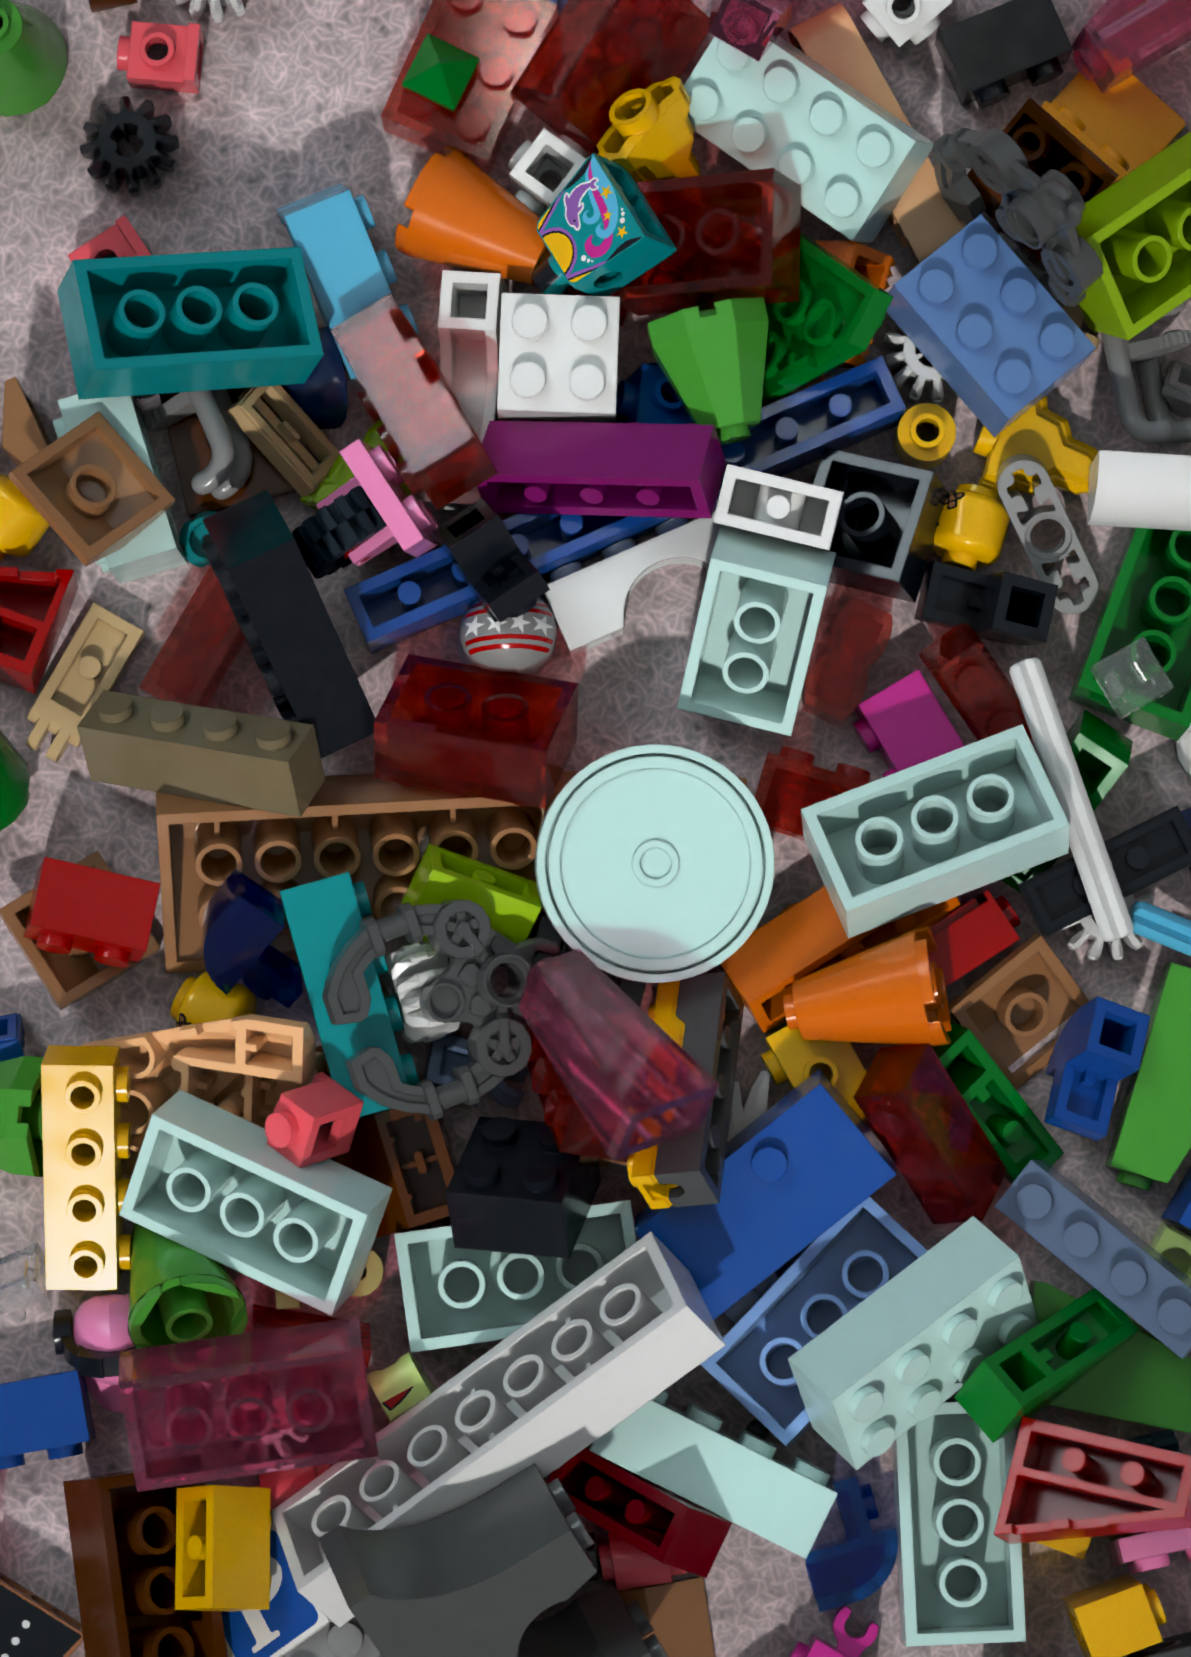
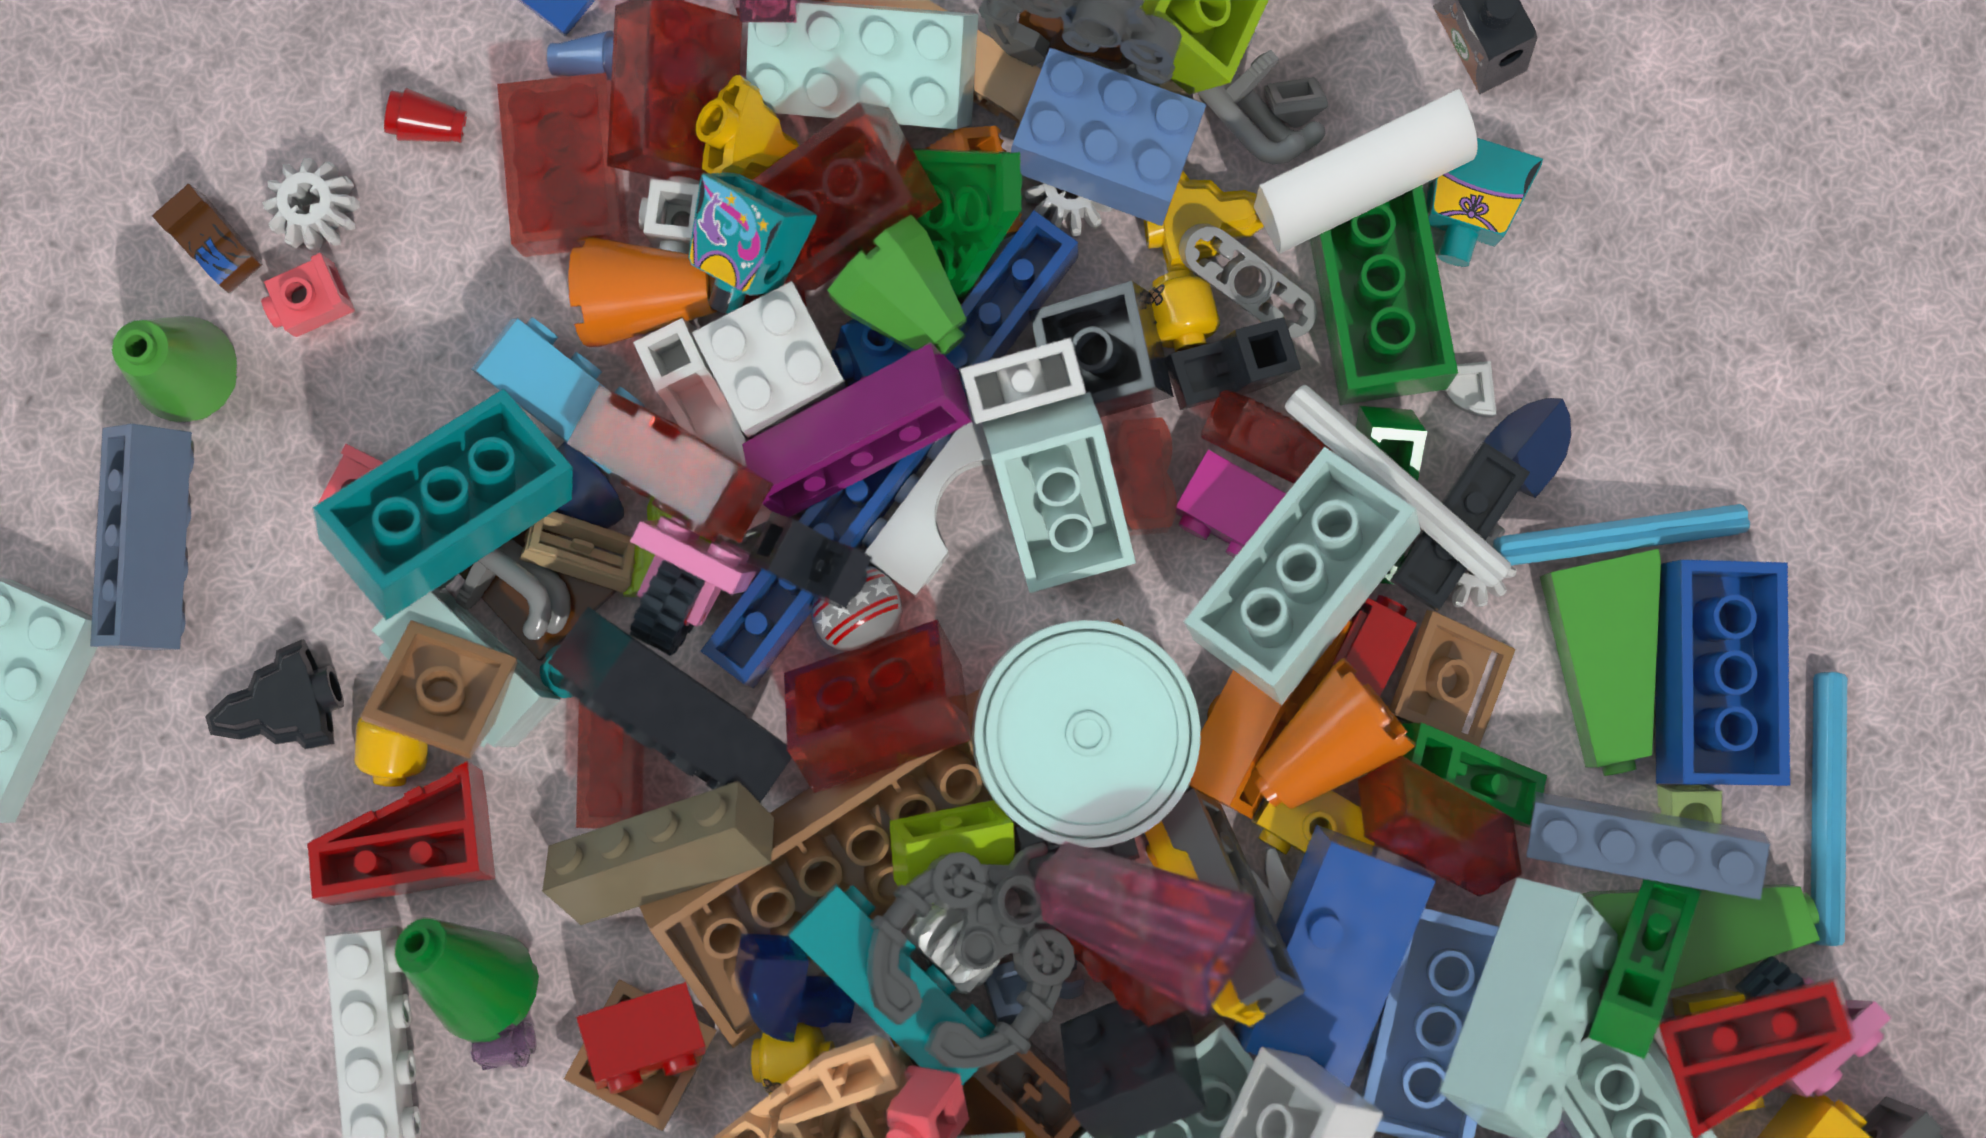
camera: 25 degrees left, 0 degrees up
(22, 429) = (353, 662): medium nougat slope -> none
(87, 667) = (525, 831): tan hinge -> none
(107, 154) = (342, 378): black gear -> none
(440, 72) = (539, 180): green slope -> none
(793, 783) = (1162, 603): clear red brick -> none
(919, 453) = (1101, 273): yellow brick -> none
(1089, 1059) = (1527, 689): blue brick -> none
(1131, 678) = (1389, 358): clear tile -> none

